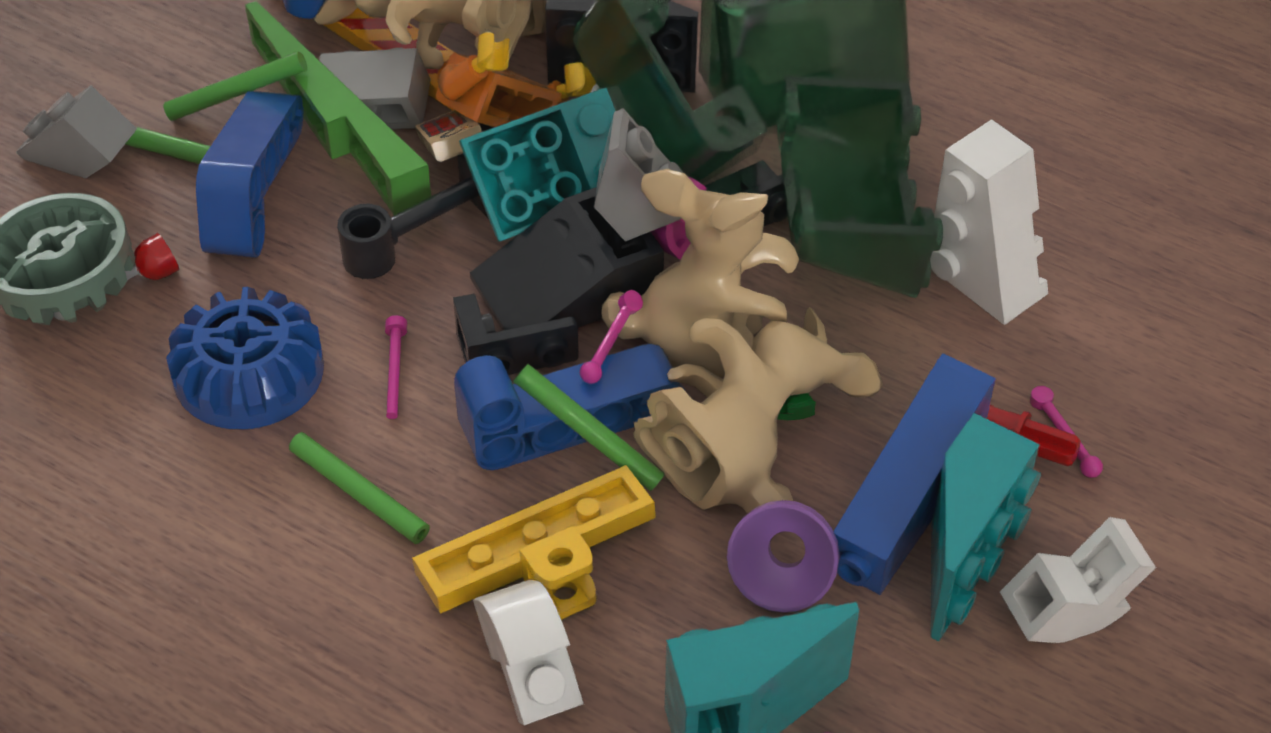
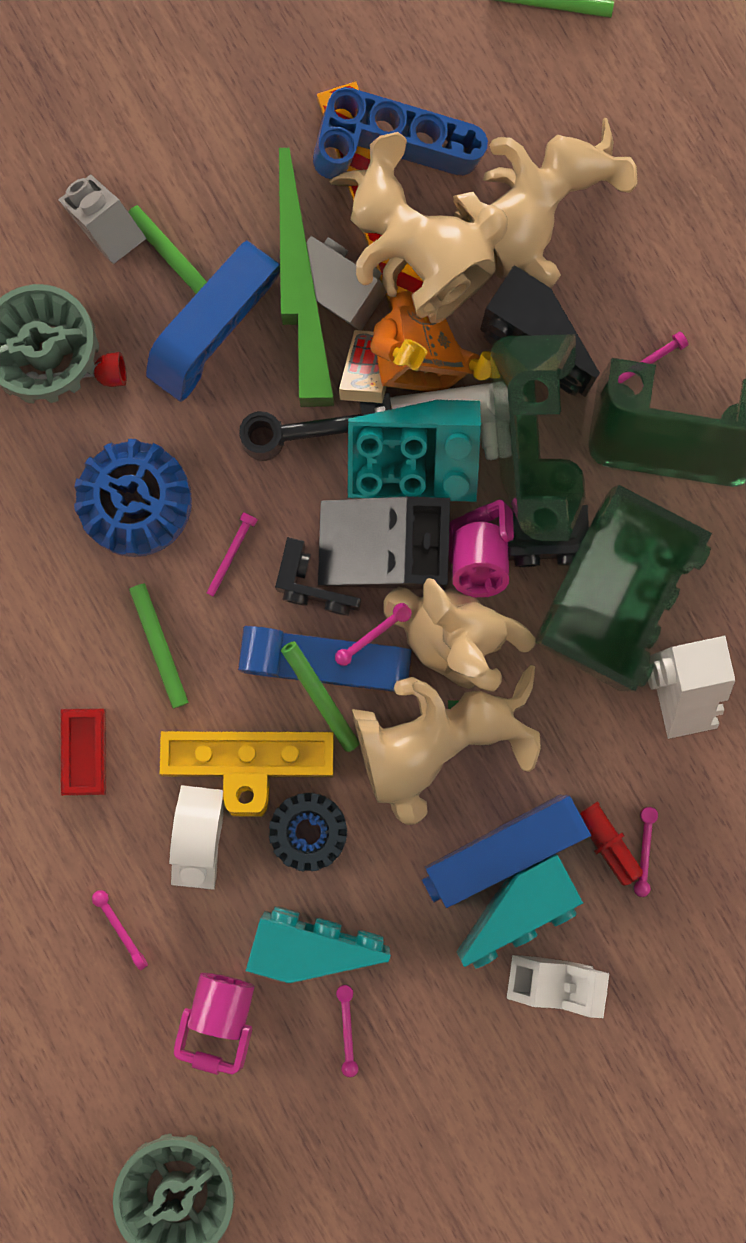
camera: 25 degrees right, 35 degrees up
(235, 86) = (236, 230): bright green bar -> none
(323, 638) = (83, 752): none -> red tile
(625, 160) = (447, 542): light grey slope -> none
(662, 558) = (298, 852): none -> black bush
(779, 584) = (384, 867): medium lavender piece -> none

